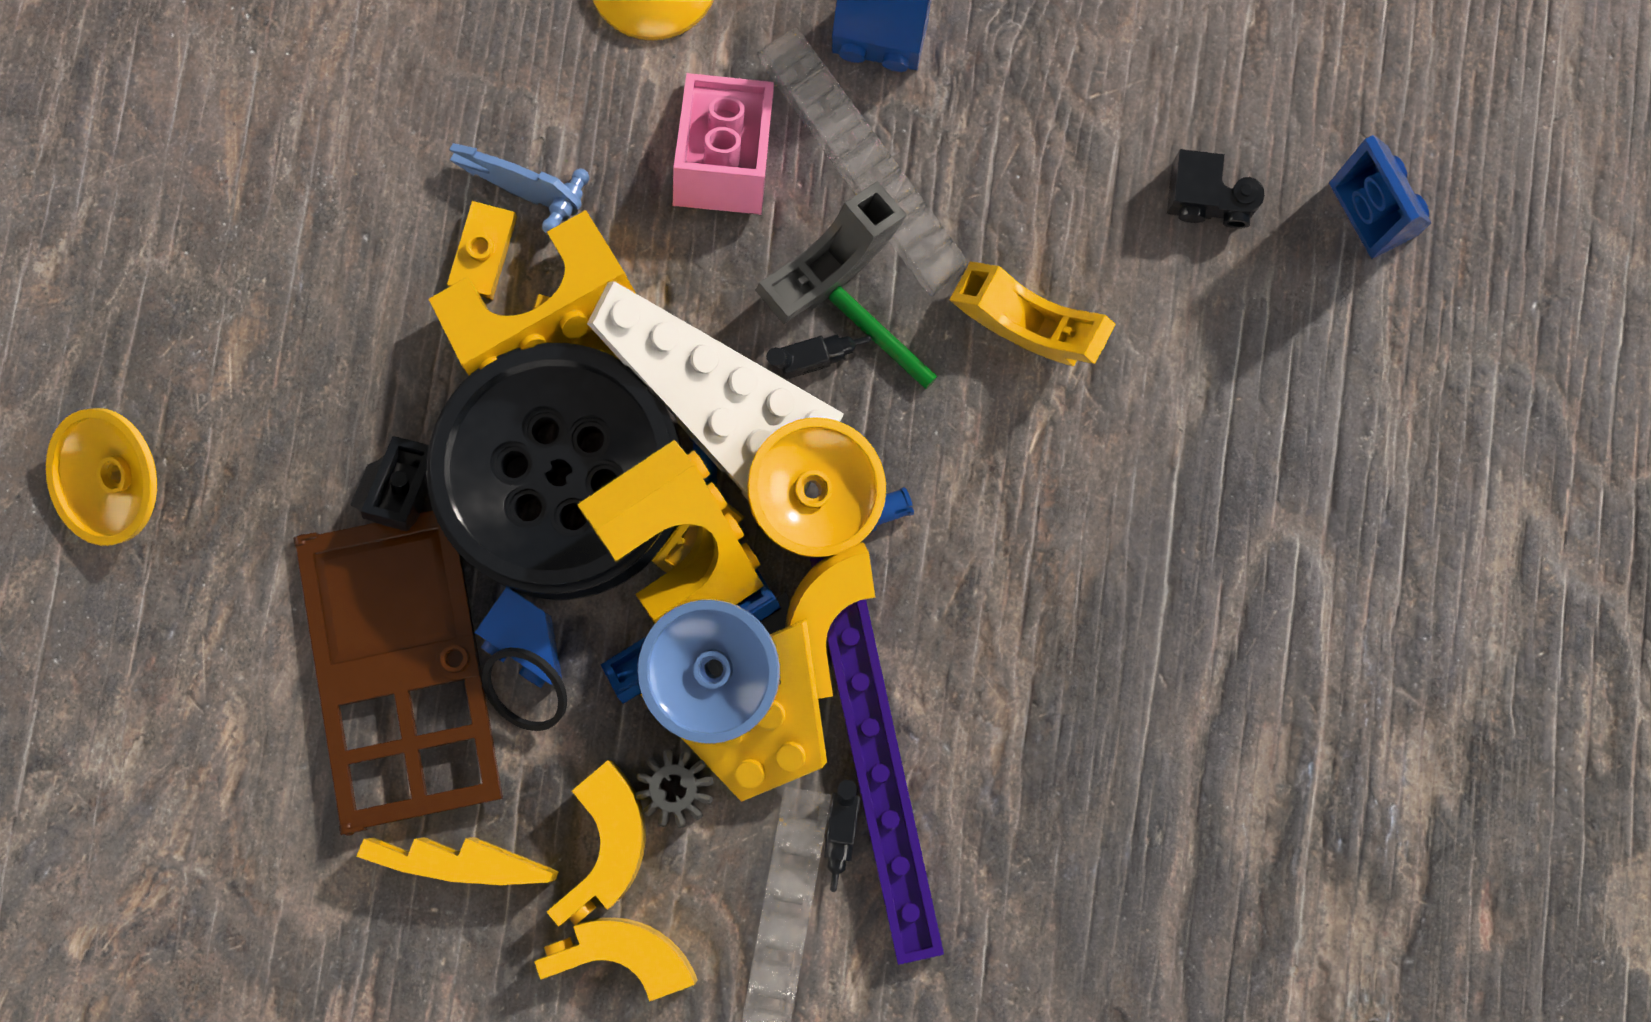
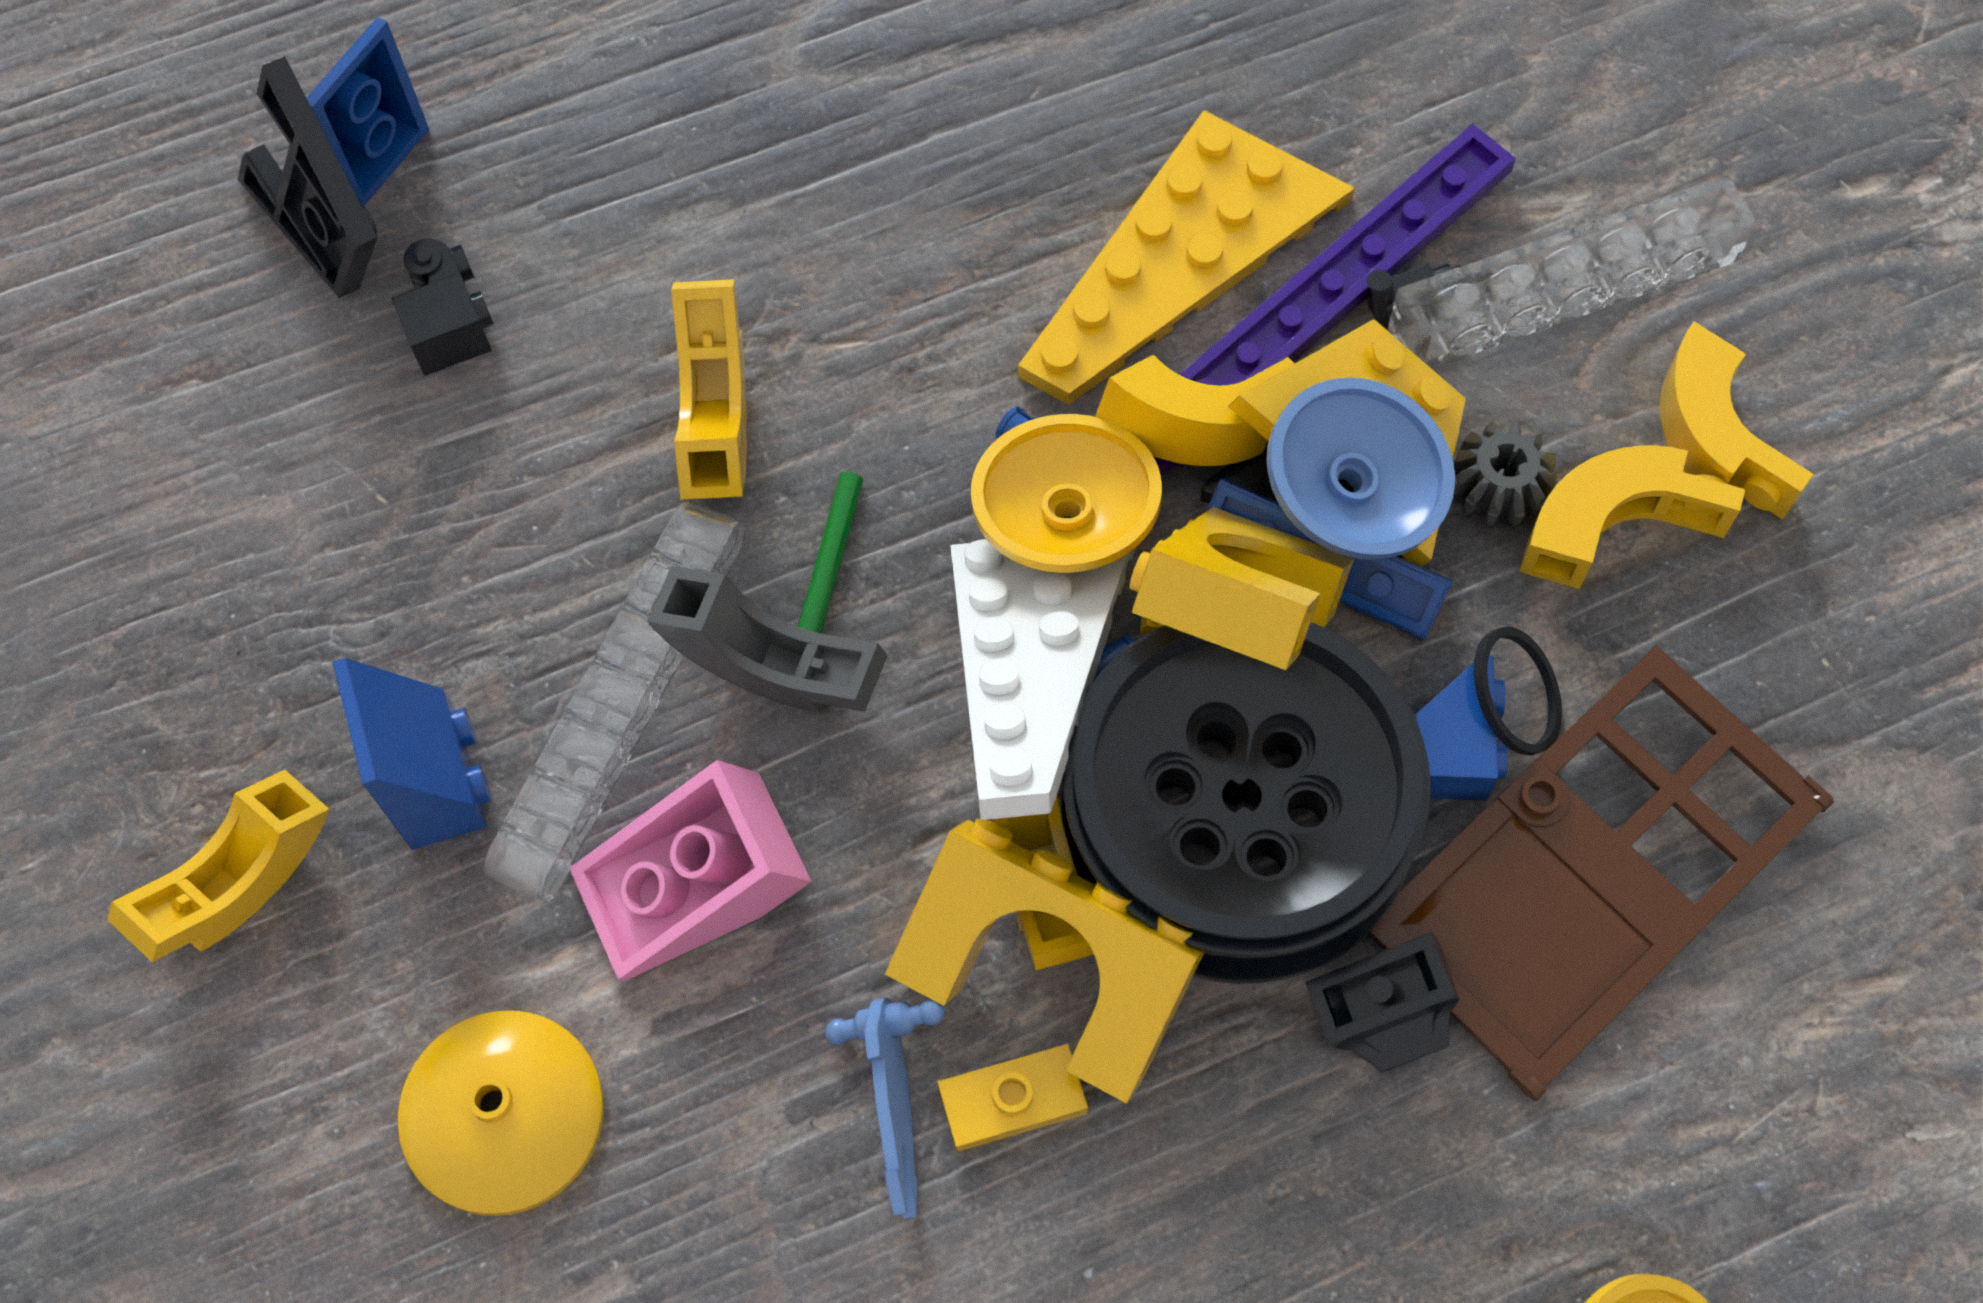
camera: 120 degrees left, 15 degrees down
(475, 862) = (1750, 633): yellow slope -> none
(813, 354) = (899, 617): black piece -> none
(980, 717) = (1185, 242): none -> yellow wing
(1329, 136) = (312, 194): none -> black wing

